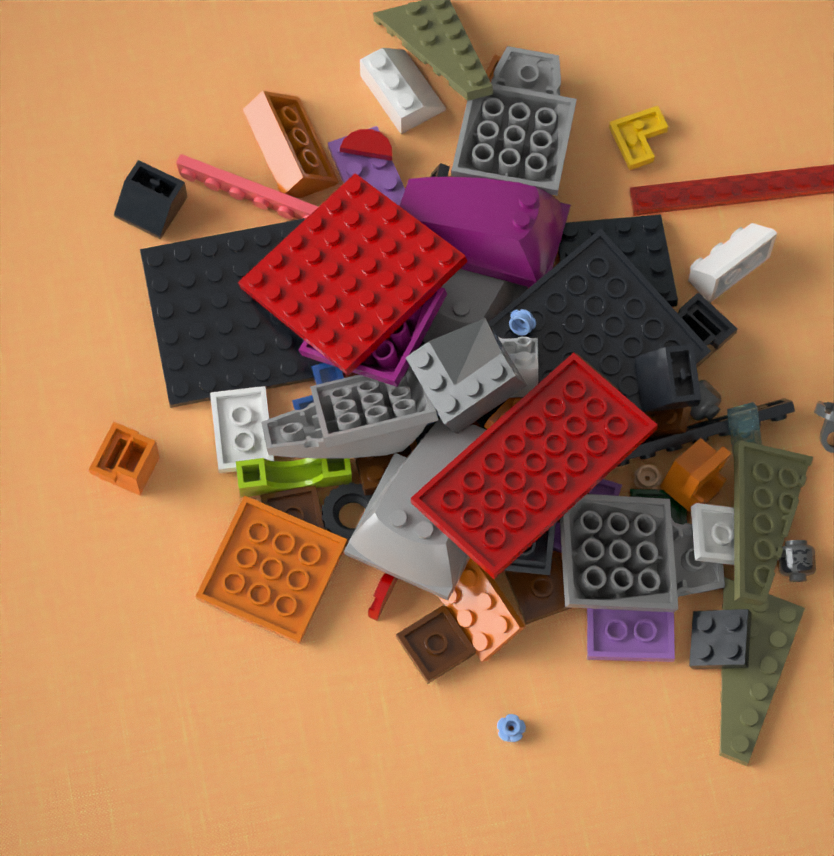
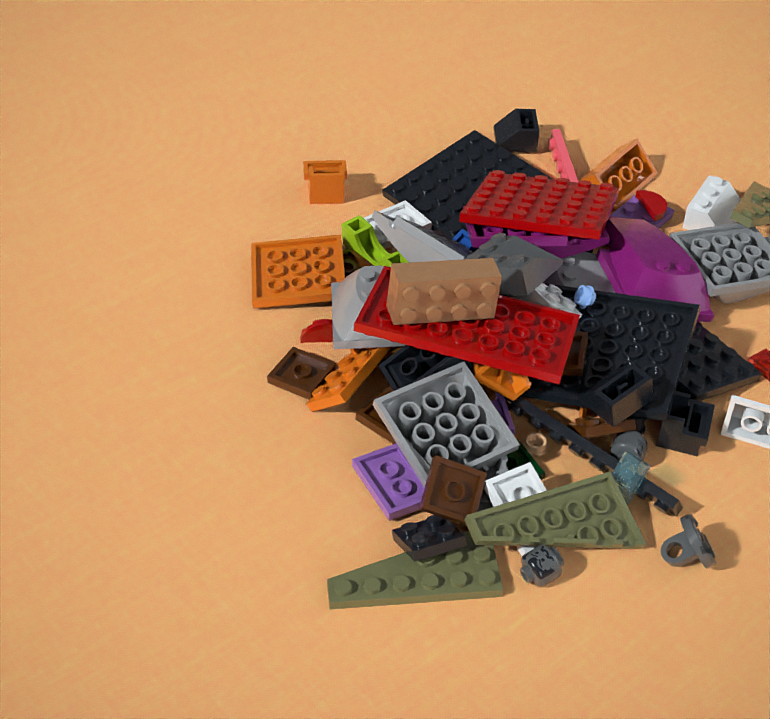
camera: 60 degrees right, 25 degrees down
(514, 470) = (443, 291): none -> medium nougat brick
(514, 735) = (261, 441): light blue plate -> none
(696, 475) = (561, 459): orange plate -> none
(696, 591) = (452, 490): none -> reddish brown plate

